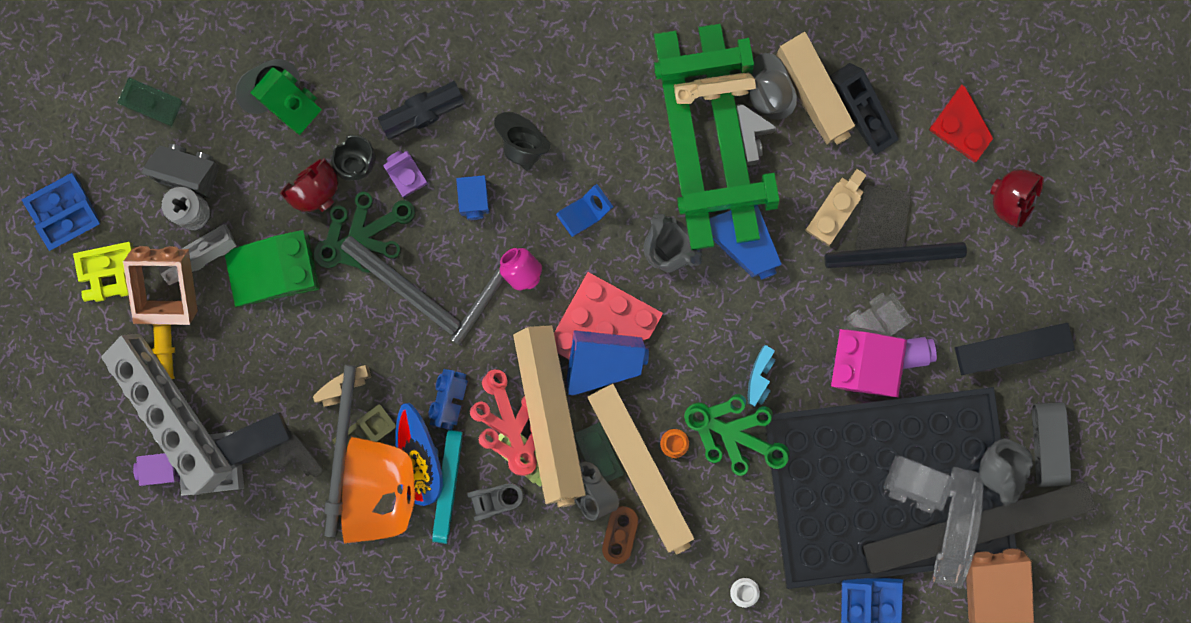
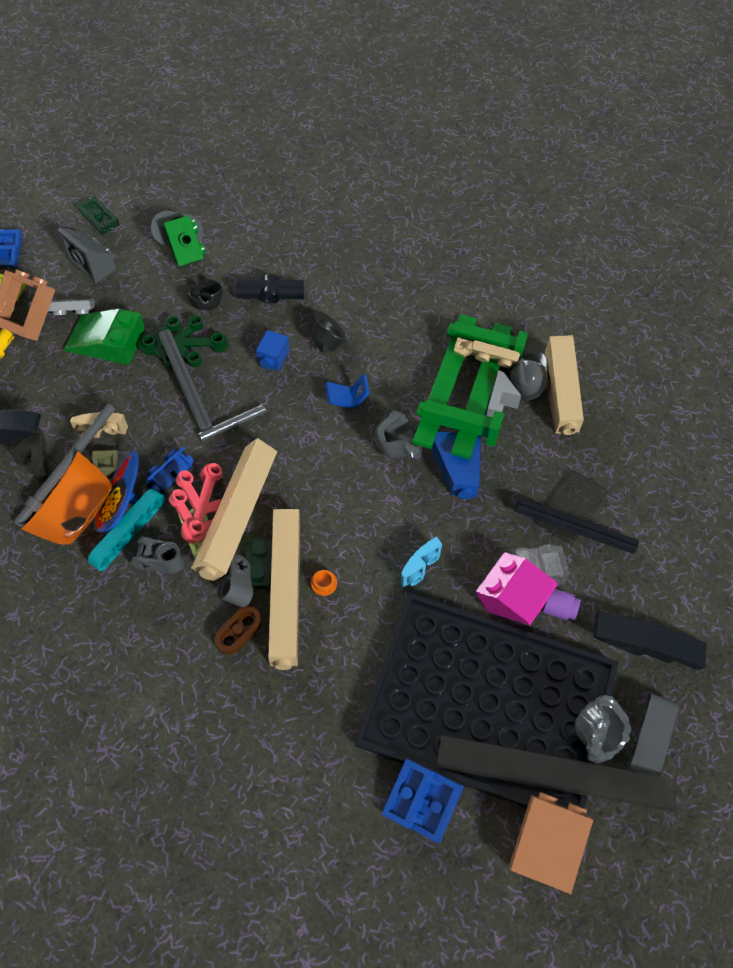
camera: 25 degrees right, 25 degrees down
(174, 207) = (73, 271): light grey piece -> none
(312, 188) = (165, 296): dark red cylinder -> none
(404, 173) = (234, 318): medium lavender bracket -> none
(520, 269) = (277, 407): dark pink head -> none
(603, 360) = (301, 490): blue slope -> none
(606, 310) = (318, 471): coral plate -> none
(732, 433) = (374, 592): green plant -> none
(744, 592) = (316, 731): white plate -> none
(836, 208) = (543, 475): tan hinge -> none
(864, 107) = (597, 416): black slope -> none
(918, 484) = (515, 704): clear brick -> none
(961, 529) = (535, 764): clear slope -> none
(962, 126) = (670, 464): red wing -> none
(1016, 195) = (698, 520): dark red cylinder -> none

